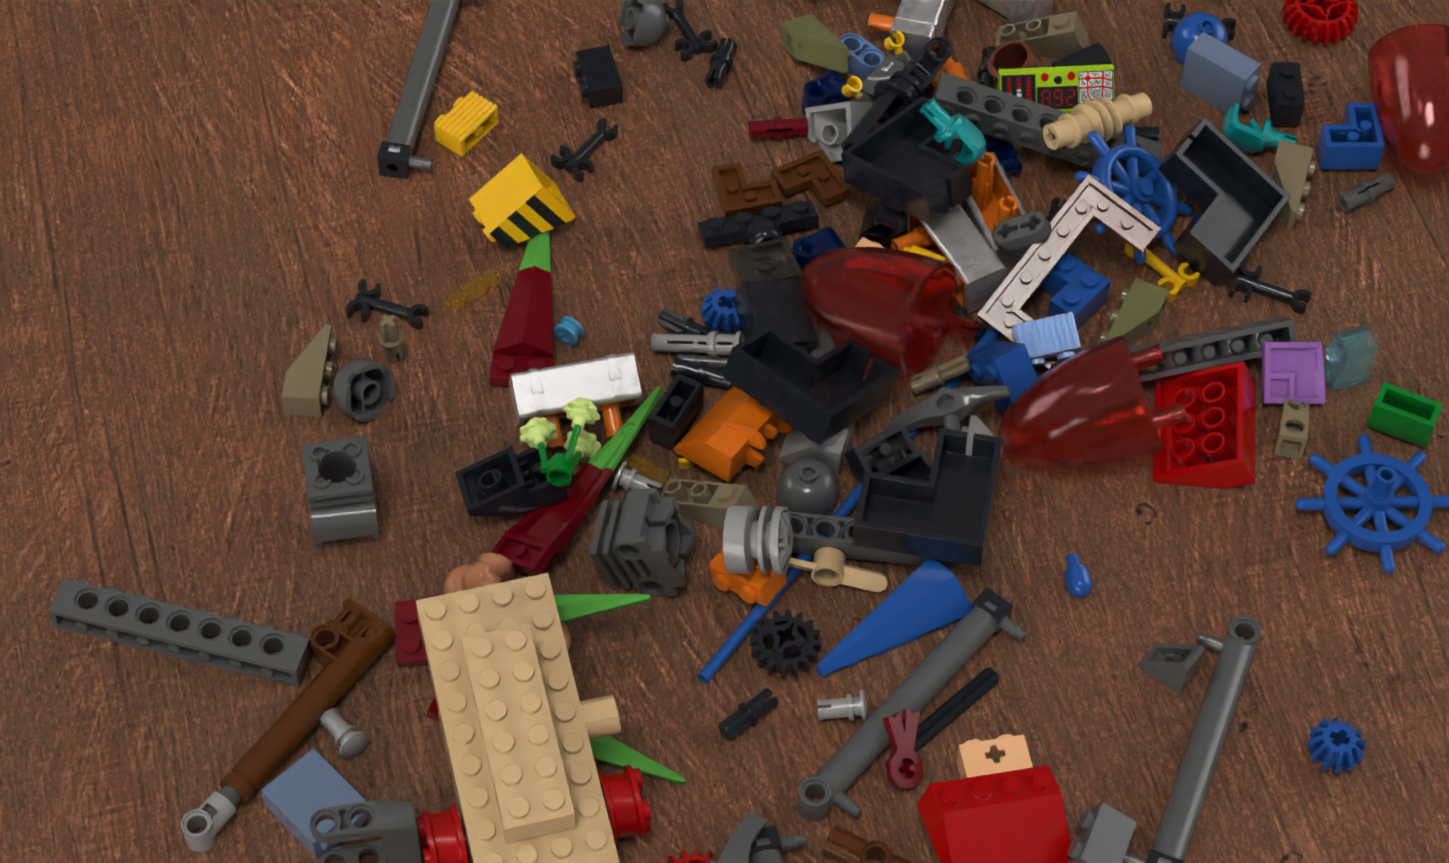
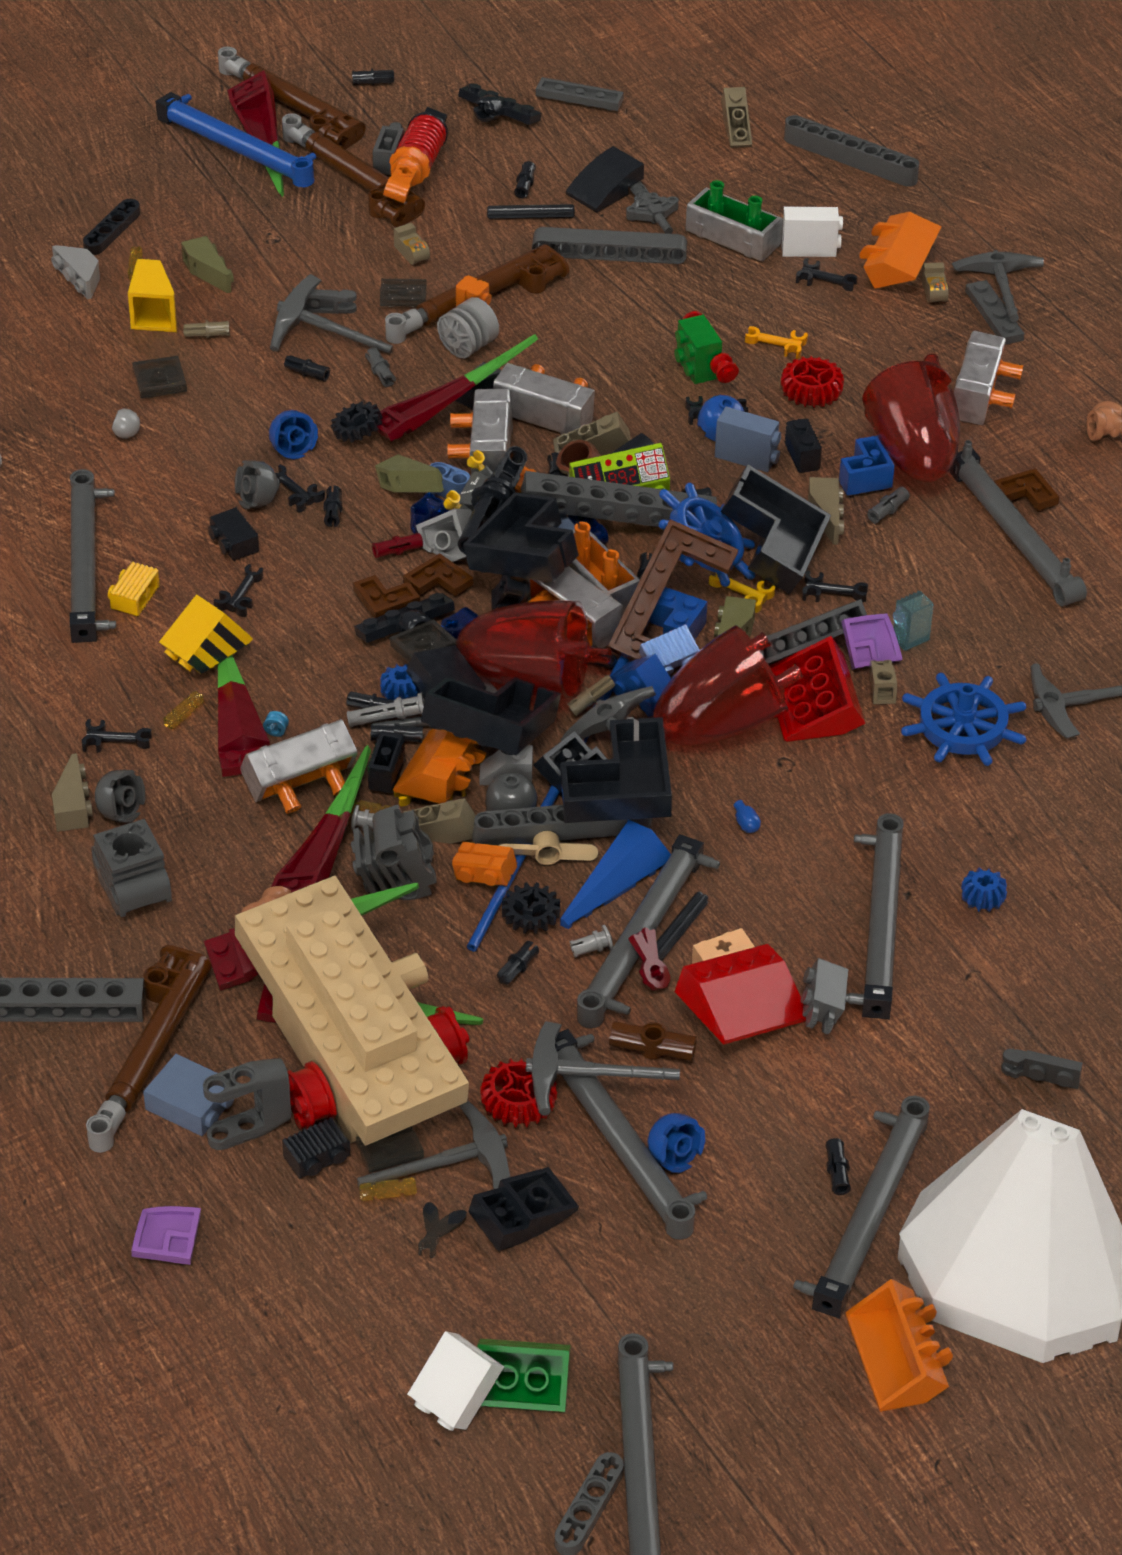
camera: 15 degrees left, 10 degrees down
(347, 737) = (197, 1044): light grey pin -> none
(390, 338) = (130, 753): dark tan axle -> none
(507, 484) = (269, 838): black slope -> none
(579, 444) = (314, 803): yellowish green plant -> none
(756, 539) = (490, 828): light grey wheel -> none
(955, 127) = (551, 505): teal piece -> none
(1022, 230) = (627, 573): dark grey beam -> none
(1099, 116) = (673, 478): tan piece -> none
(1173, 664) = (842, 860): dark grey slope -> none
(1252, 137) = (784, 477): teal piece -> none
(1404, 414) = (967, 653): green brick -> none

